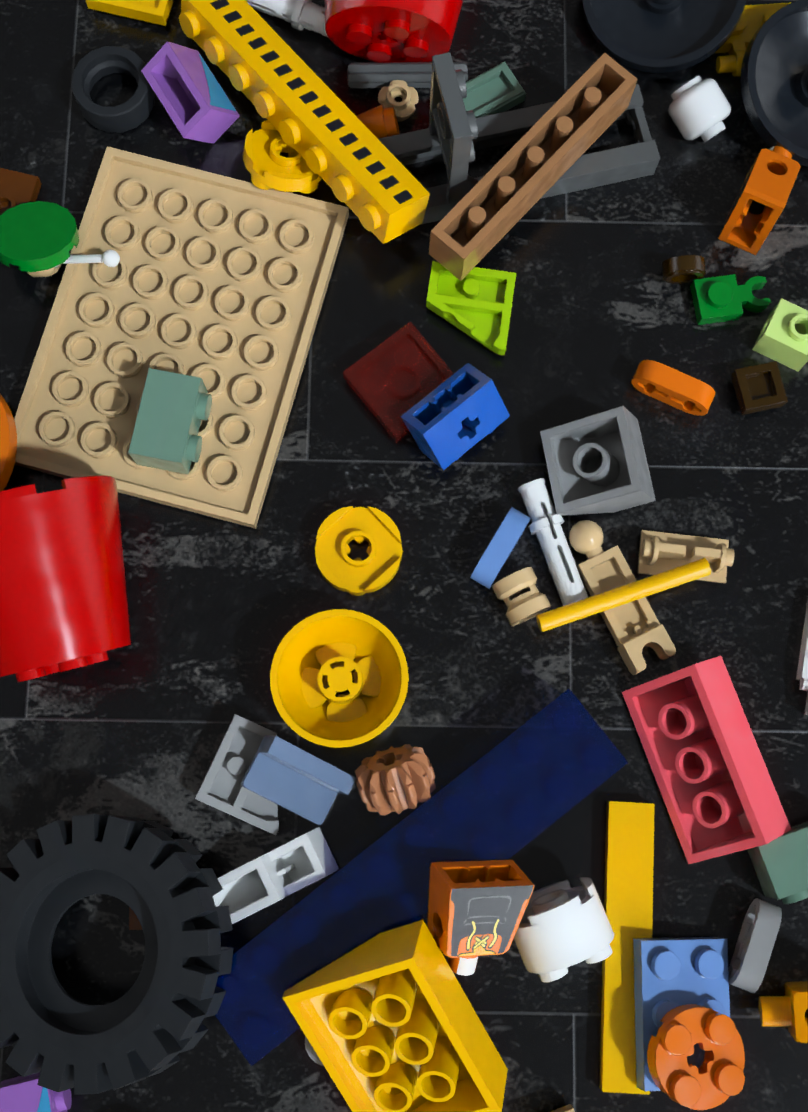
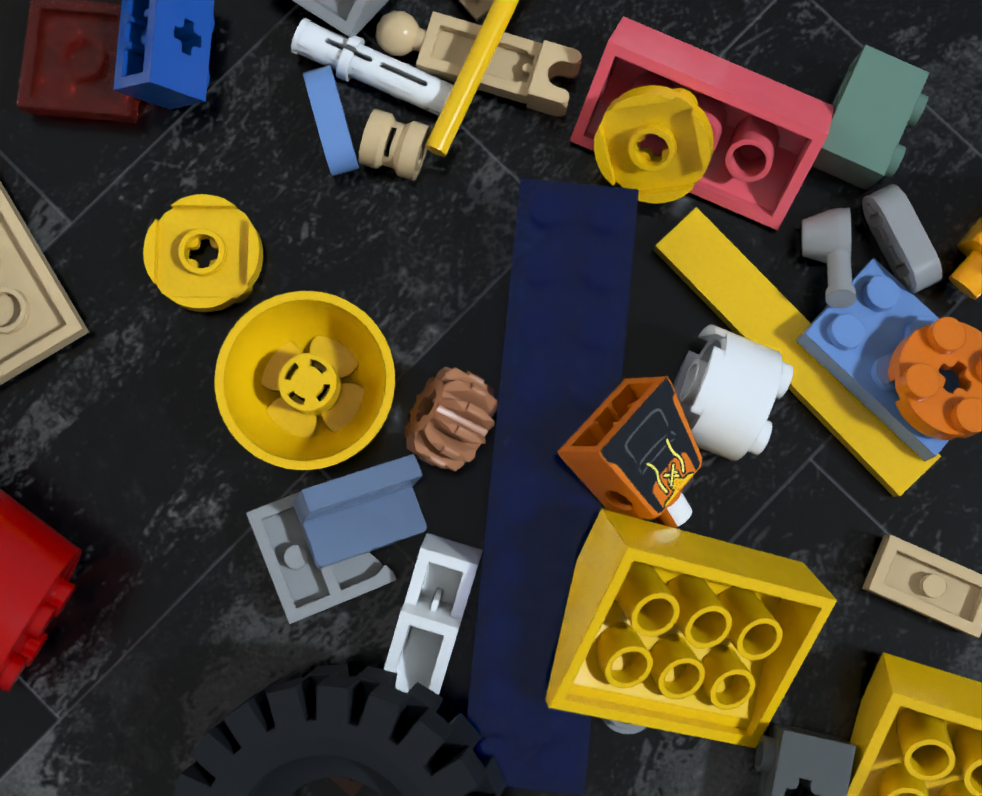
camera: 45 degrees left, 5 degrees up
(687, 738) = (671, 116): none -> yellow plate
(710, 901) = (828, 240): none -> light grey bar

